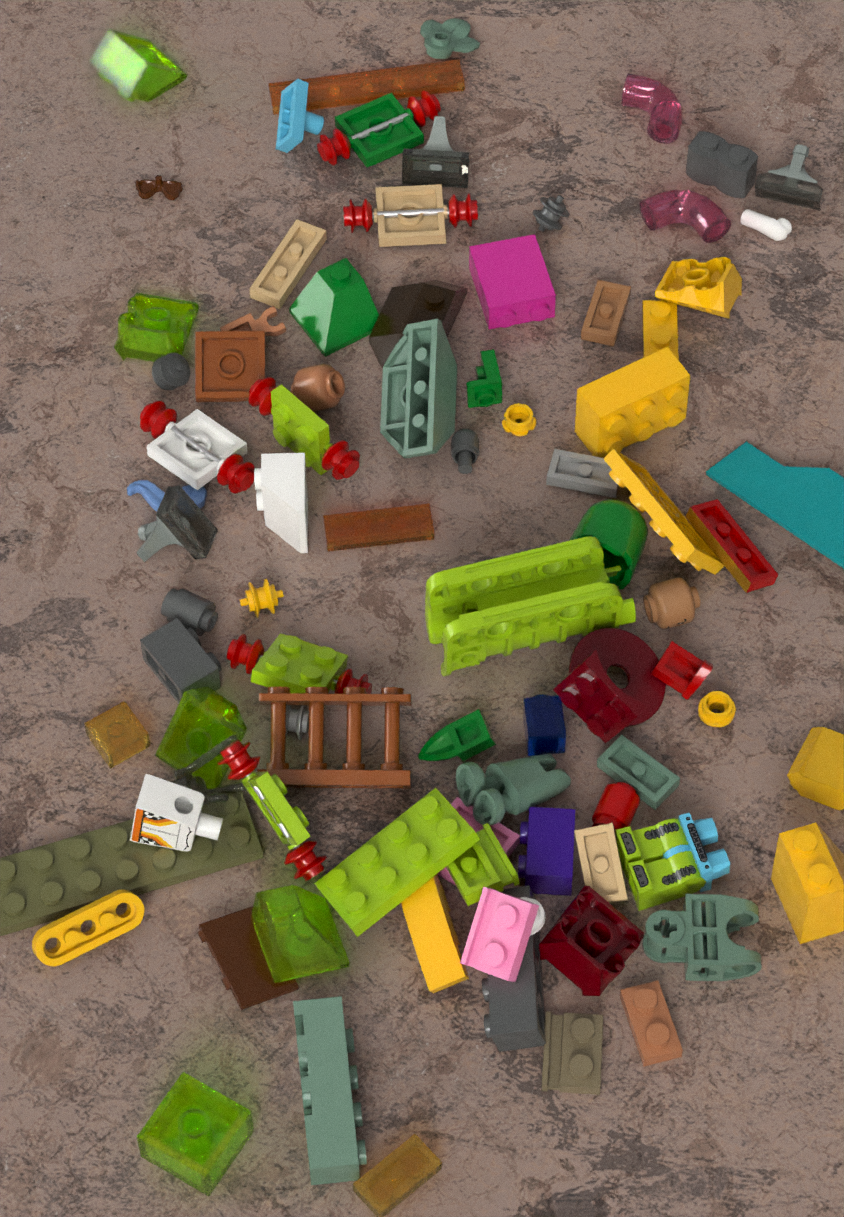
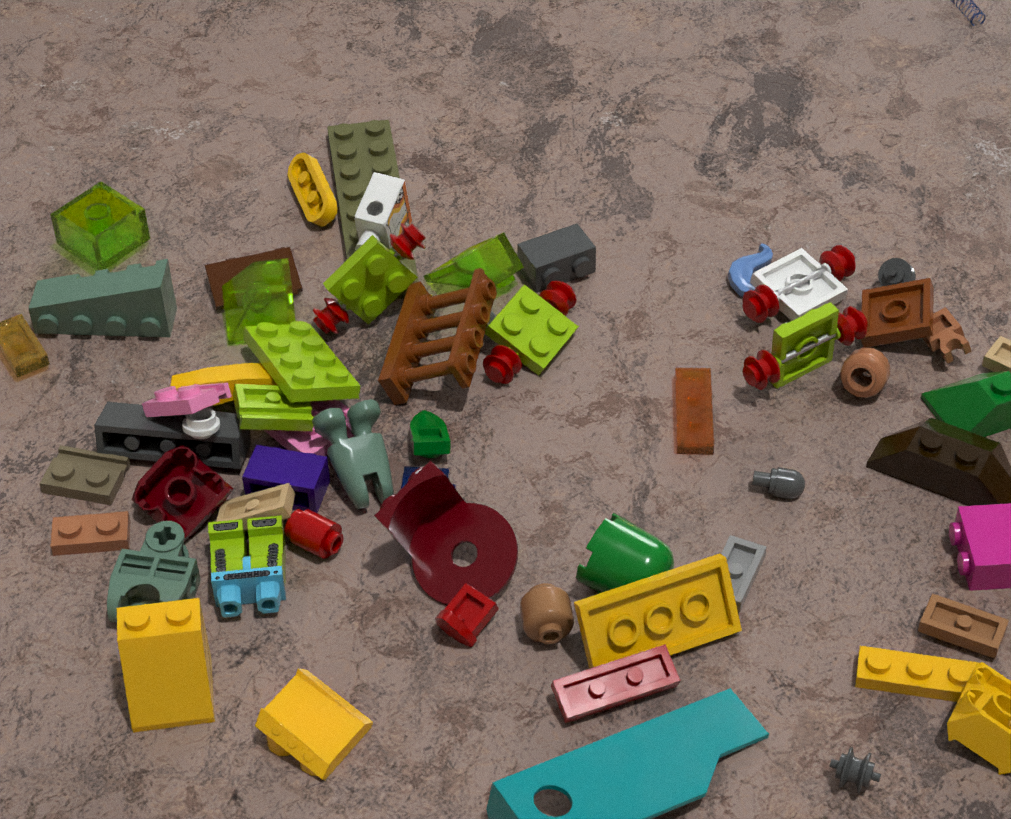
camera: 100 degrees right, 10 degrees down
(117, 734) = (495, 218): clear yellow piece -> none
(154, 327) = (960, 272): clear neon green slope -> none
(177, 523) = (702, 261): clear smoke piece -> none
(185, 779) = (423, 256): clear smoke plant -> none
(190, 610) = (612, 267): dark grey brick -> none
(261, 598) = (617, 314): yellow wheel -> none
(284, 496) = (715, 328): white slope -> none
(419, 391) = (838, 443): sand green wedge -> none
(488, 386) = (868, 509): green bracket -> none
(519, 413) = (815, 530): yellow plate -> none
(522, 602) = (550, 483): lime piece -> none
(632, 403) = (811, 610): yellow brick -> none
(635, 767) = (354, 560): sand green plate -> none
(720, 701) = (413, 630): yellow plate -> none
(775, 376) = (855, 770): none -> dark grey wheel

